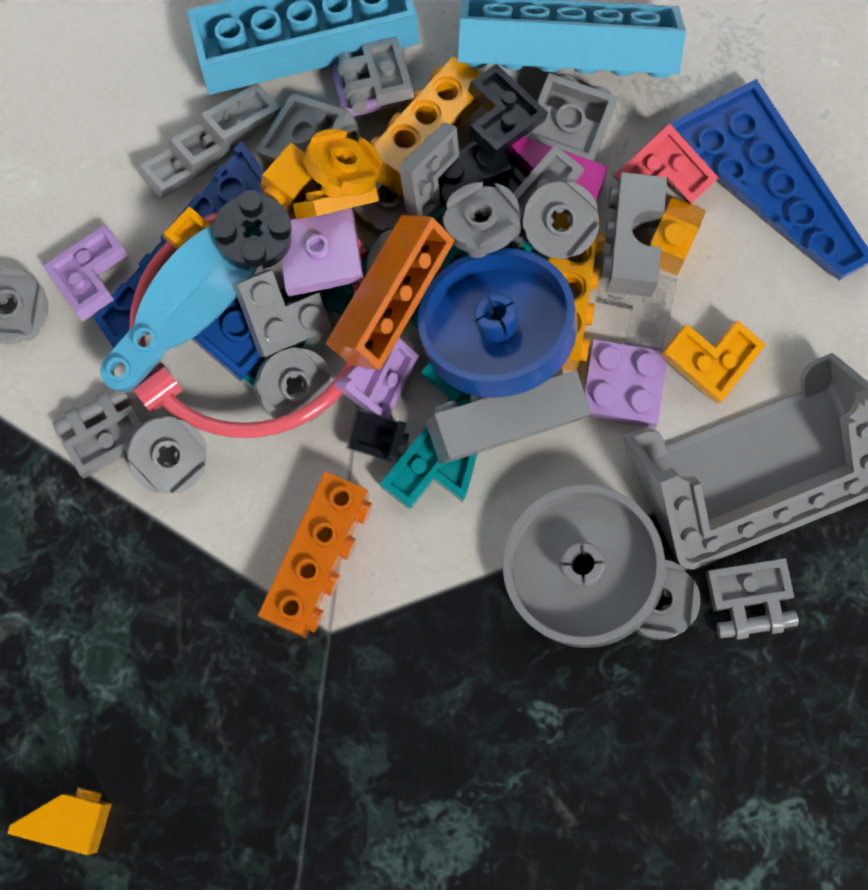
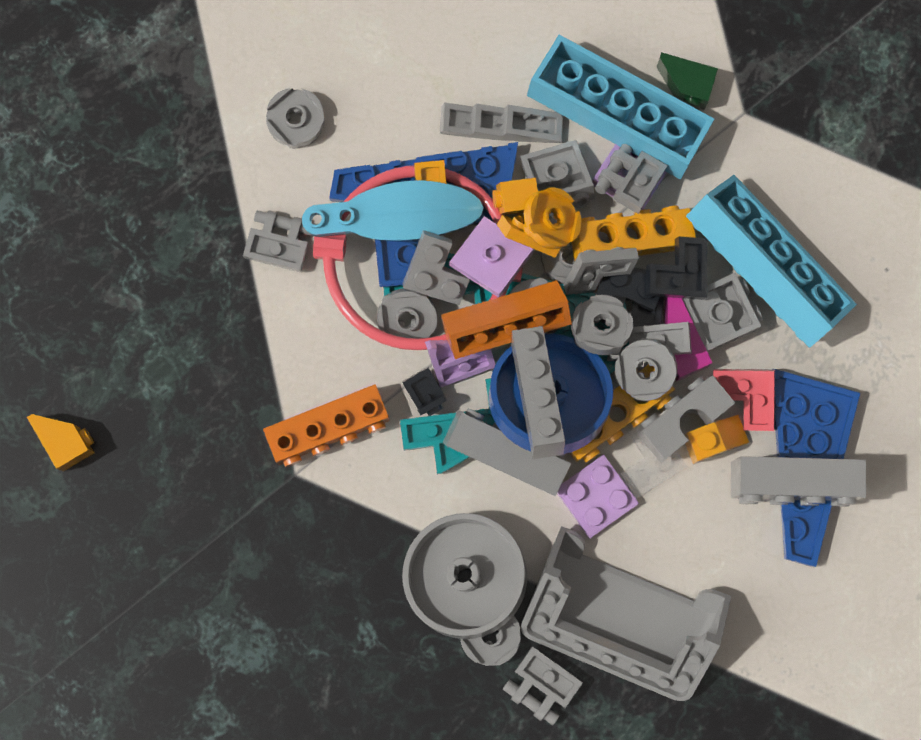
camera: 45 degrees right, 5 degrees up
(78, 267) = (353, 132): lavender plate -> none
(166, 477) = (288, 302): light grey plate -> none
(255, 251) = (474, 196): black plate -> none
(490, 322) = (537, 392): none -> light grey brick
(714, 367) = (657, 540): light orange plate -> none
(789, 191) = (798, 479): none -> light grey brick

